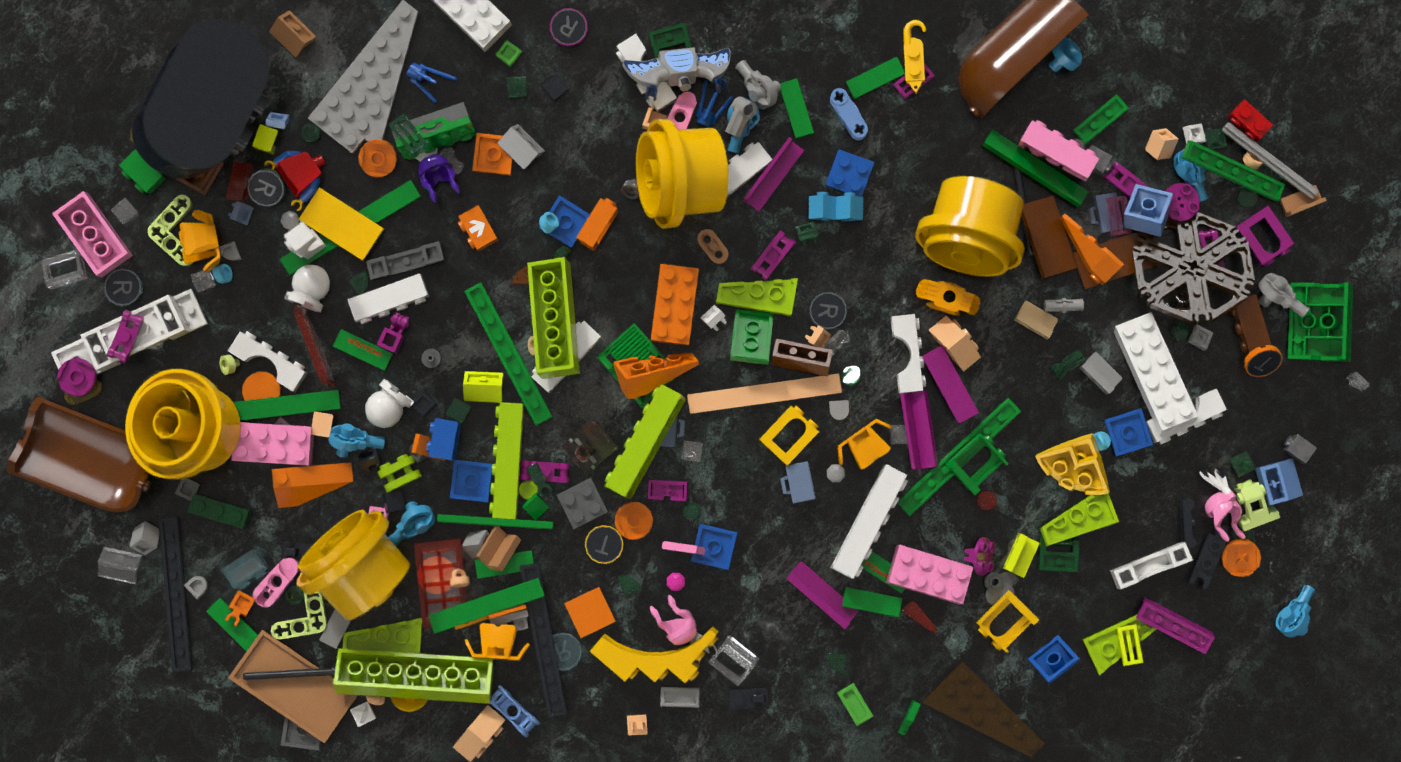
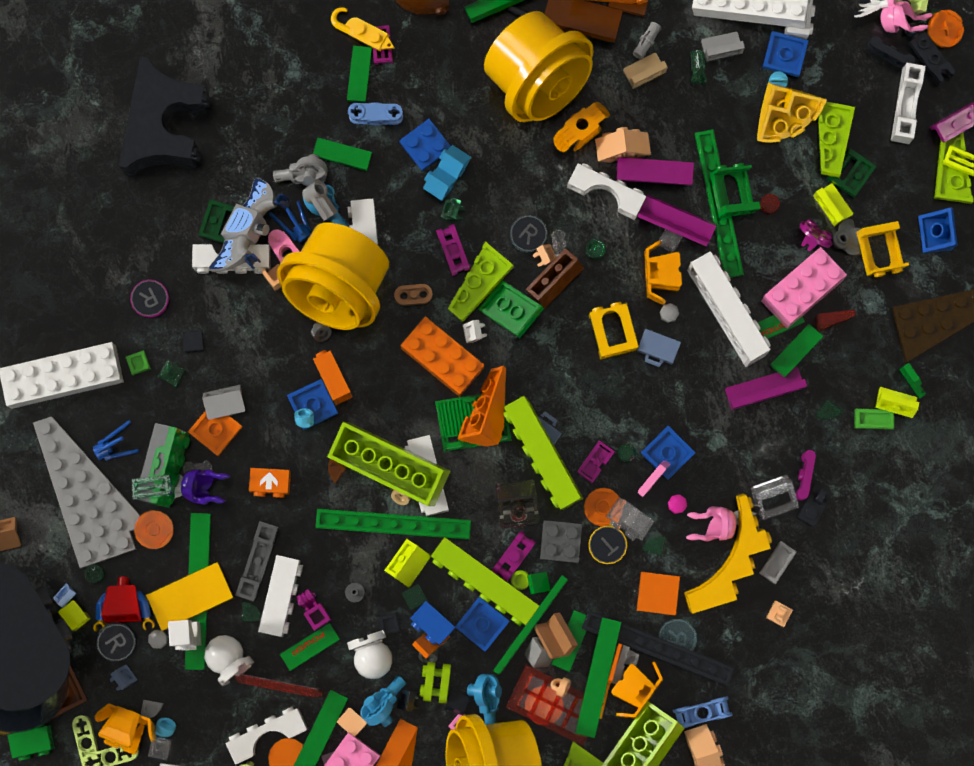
camera: 60 degrees left, 5 degrees down
(238, 182) = (95, 663): clear red panel -> none
(538, 478) = (517, 564): clear green bar -> none
(562, 251) = (336, 422): clear green tile -> none
(636, 549) = (630, 519): none -> clear brick
(692, 451) = (575, 420): clear tile -> none
(764, 393) = (564, 330): light nougat tile -> none
(768, 675) = (805, 475): none -> magenta plate
(773, 175) = (386, 207): magenta panel -> none
(839, 409) = (617, 276): light grey tile -> none
(881, 714) = (897, 402): none -> neon yellow panel

